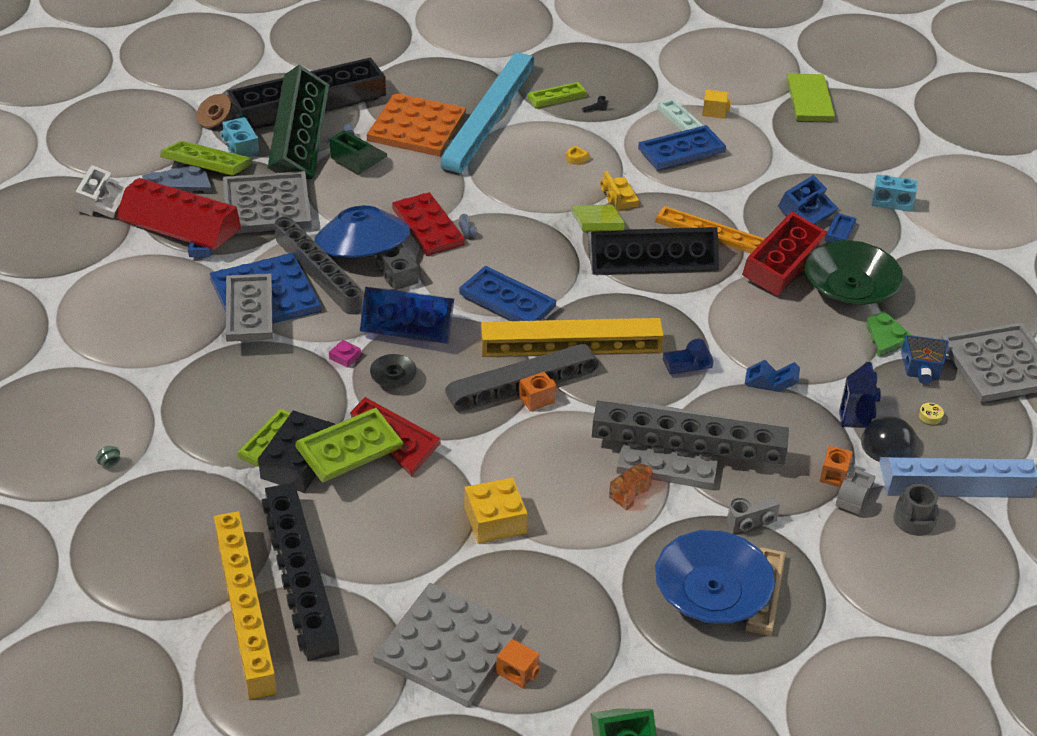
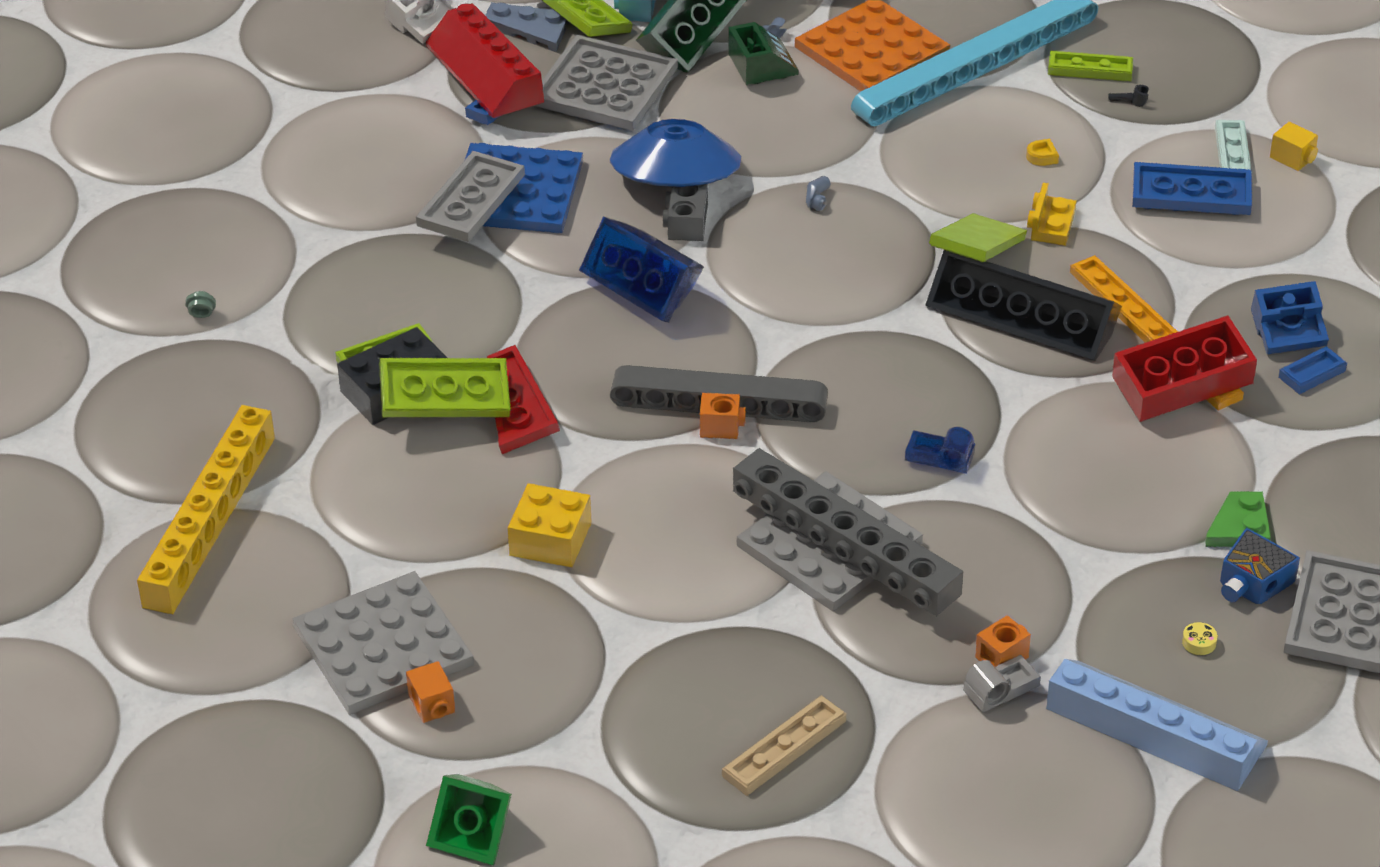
camera: 35 degrees right, 0 degrees up
(301, 572) = (291, 501): black brick -> none
(319, 265) = (596, 167): dark grey beam -> none
(344, 353) = (544, 290): dark pink plate -> none
(393, 370) = (575, 328): pearl dark grey dish -> none
(428, 223) = (775, 174): red plate -> none
(507, 296) = (788, 295): blue plate -> none
(549, 336) = (847, 377): yellow brick -> none
(630, 484) = (733, 563): clear orange leg -> none
(714, 576) = (721, 697): blue dish -> none
(745, 515) = (834, 654): light grey plate -> none
(766, 377) = (1026, 512): blue slope -> none
(854, 272) = (1255, 425): dark green dish -> none
(859, 398) = (1105, 575): clear blue slope -> none
(889, 438) = (1112, 645): black piece -> none
(917, 510) = (1054, 736): dark grey piece -> none

